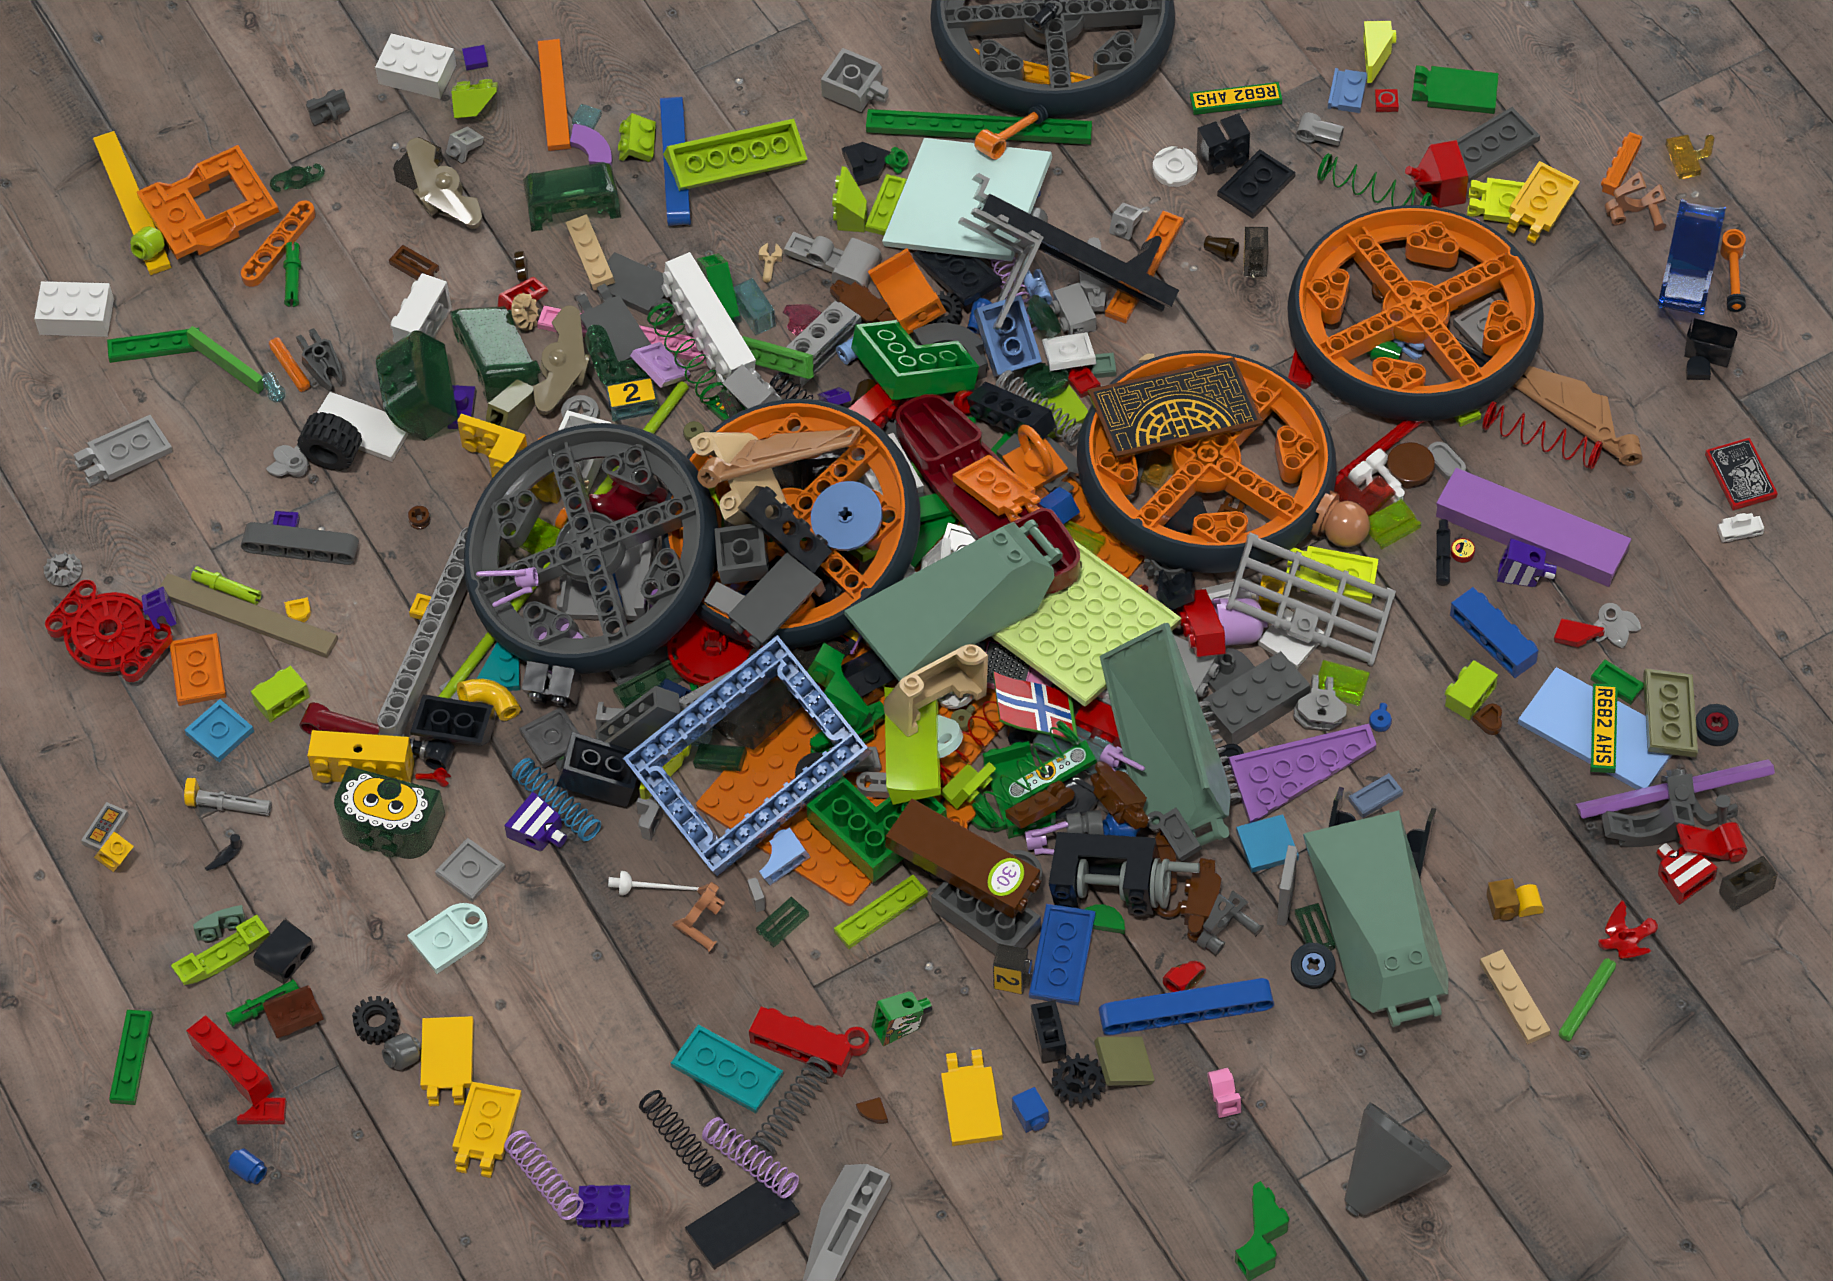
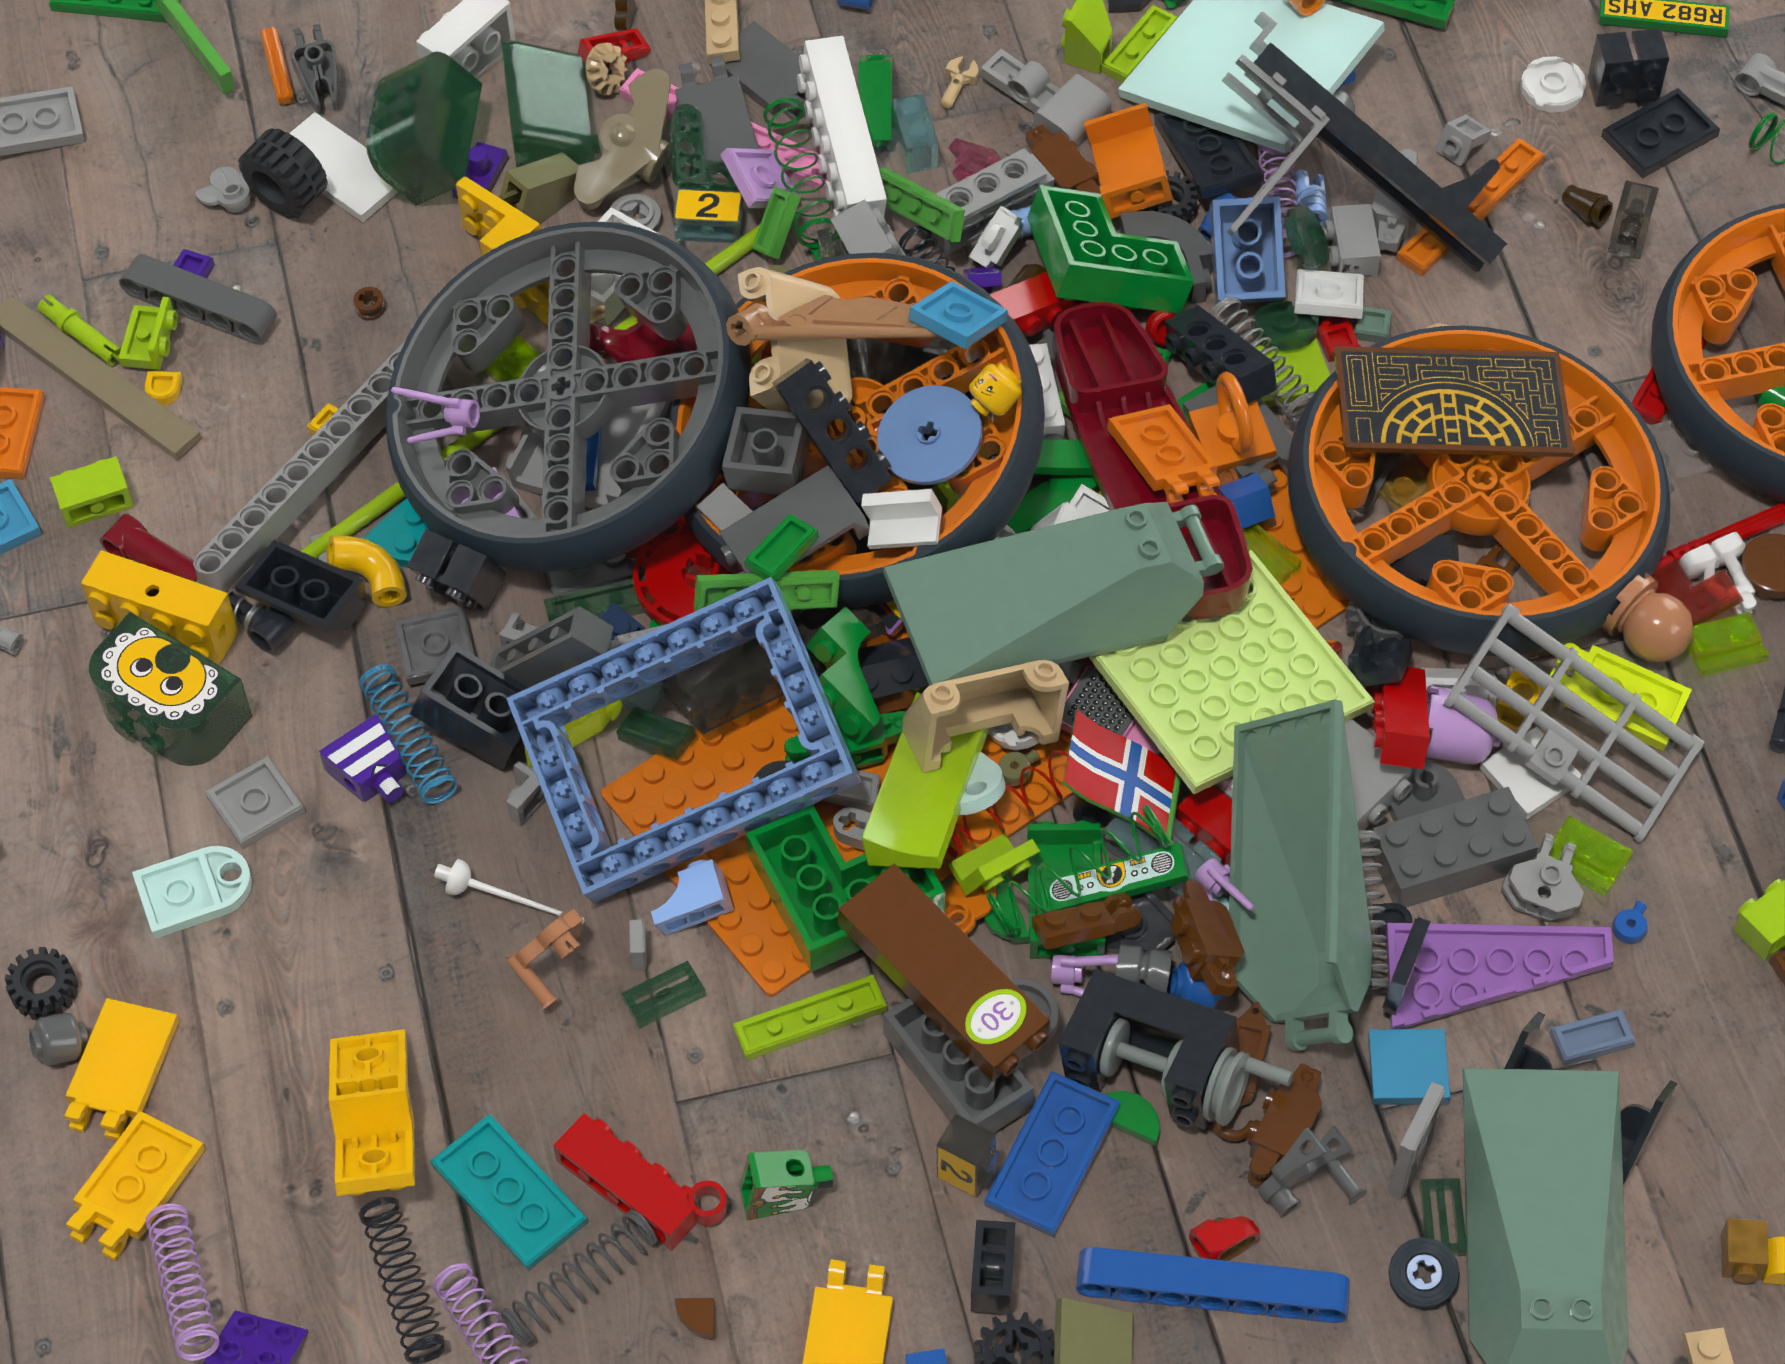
camera: 15 degrees right, 0 degrees up
(275, 391) = (244, 96): clear light blue pin -> none
(275, 577) = (148, 335): none -> lime bracket
(439, 776) = (261, 659): red hand -> none
(625, 1041) = (371, 1113): none -> yellow bracket
(682, 393) = (776, 222): none -> bright green tile
(774, 615) = (781, 548): none -> green tile
(794, 637) = (799, 588): none -> bright green tile
(835, 367) = (997, 238): none -> white piece
(843, 431) = (958, 314): none -> dark azure tile
(846, 575) = (902, 518): none -> white panel
(882, 476) = (995, 389): none -> yellow head
(1176, 832) = (1275, 1015): dark grey hinge -> none
(1249, 780) = (1405, 965): none -> black tile

